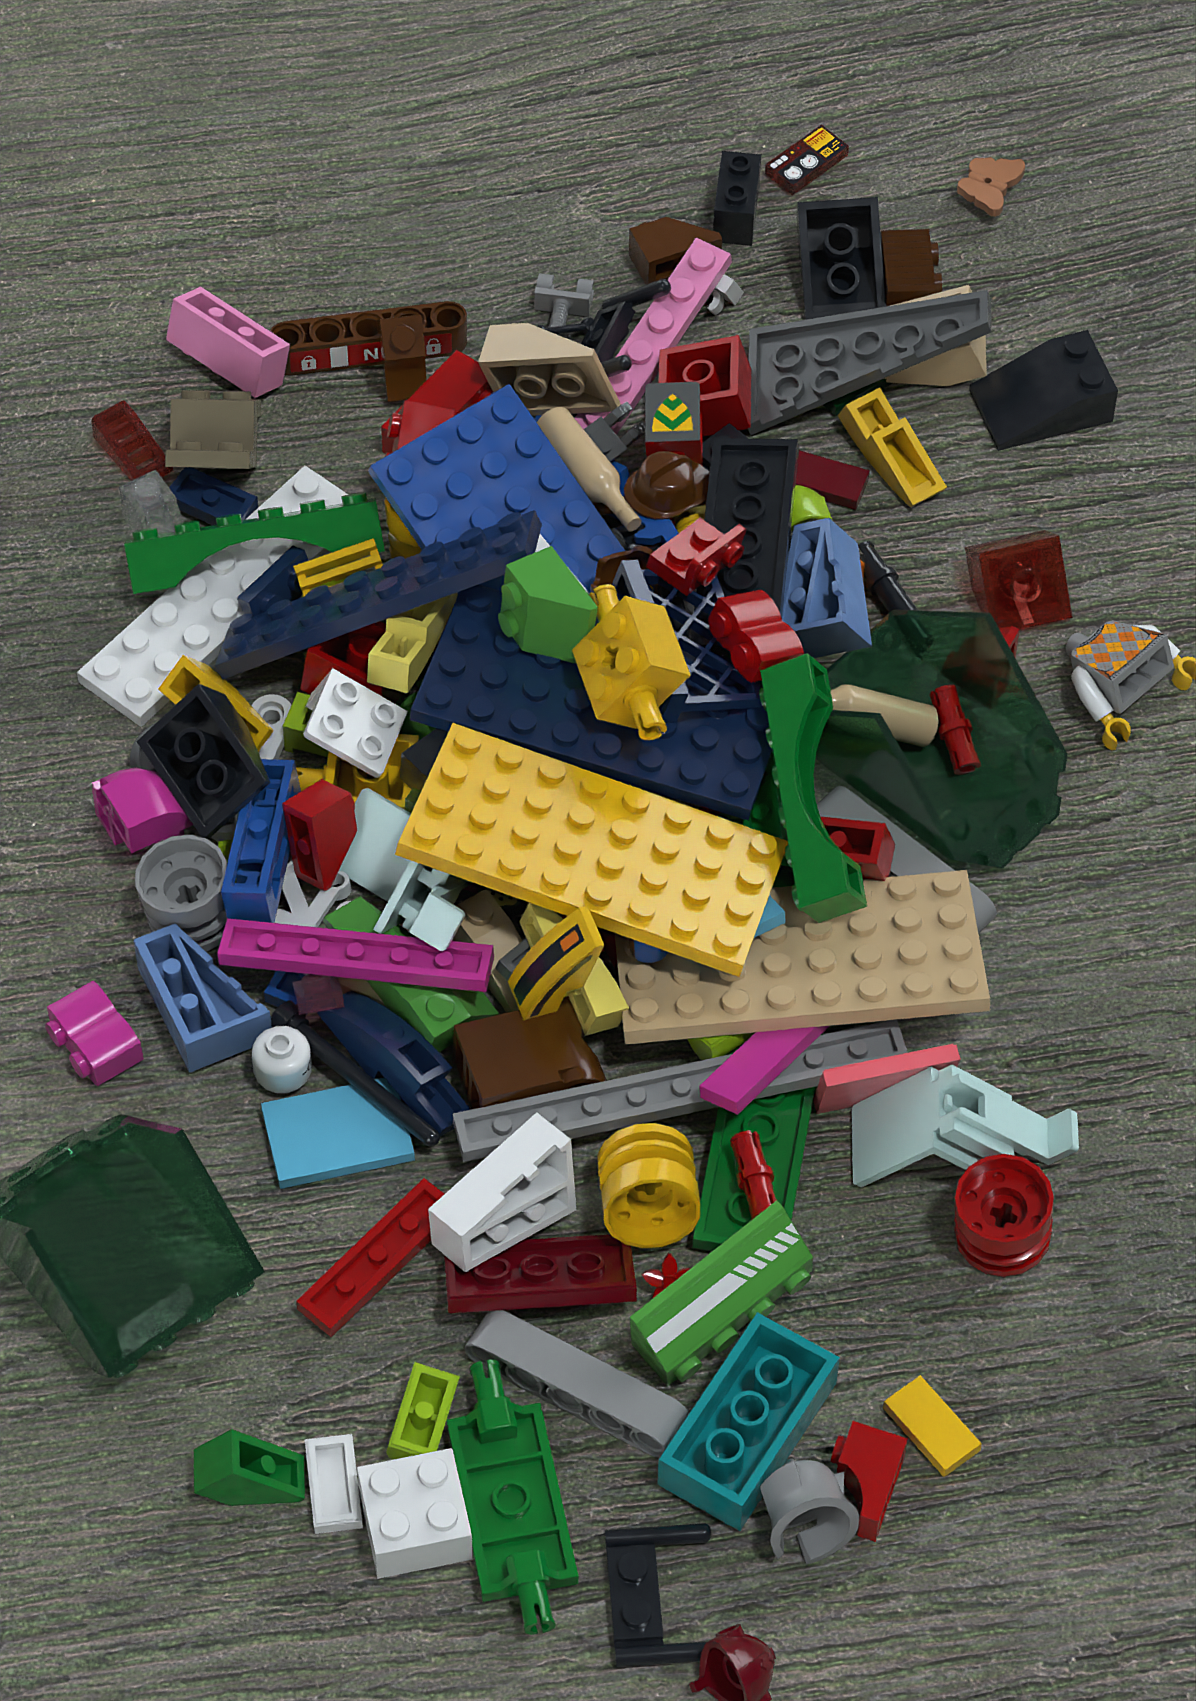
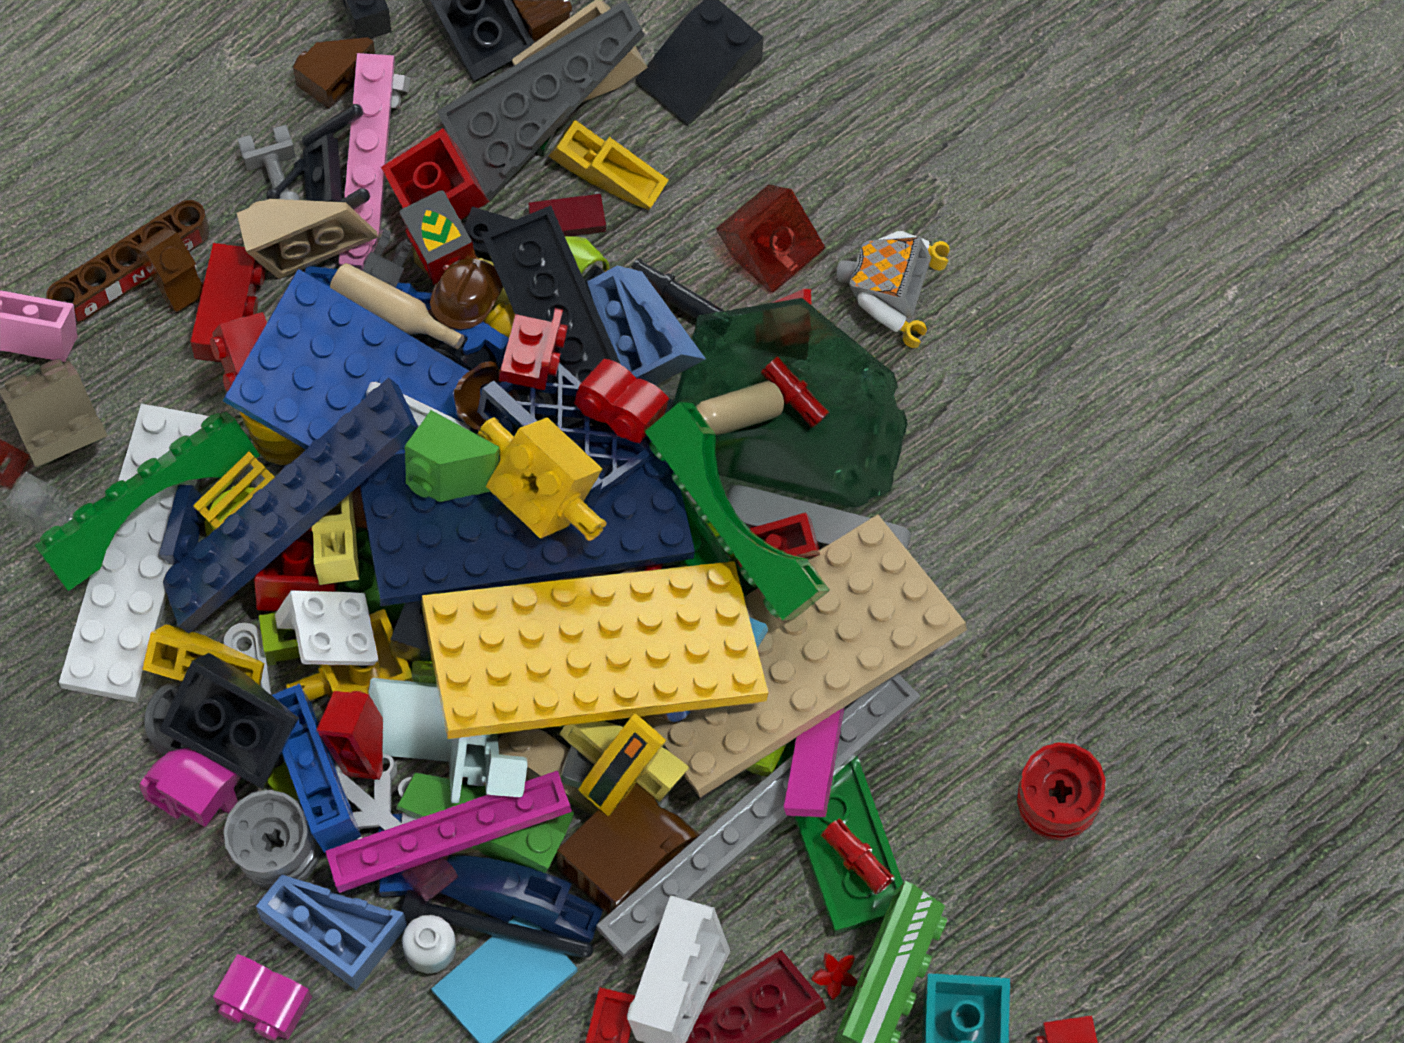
camera: 30 degrees left, 10 degrees up
(210, 497) = (83, 472): dark blue plate -> none
(648, 1185) = (783, 908): yellow wheel -> none
(852, 1083) = (911, 721): coral tile -> none
(932, 1426) = (1094, 989): yellow tile -> none
(953, 1118) = (978, 737): light aqua piece -> none

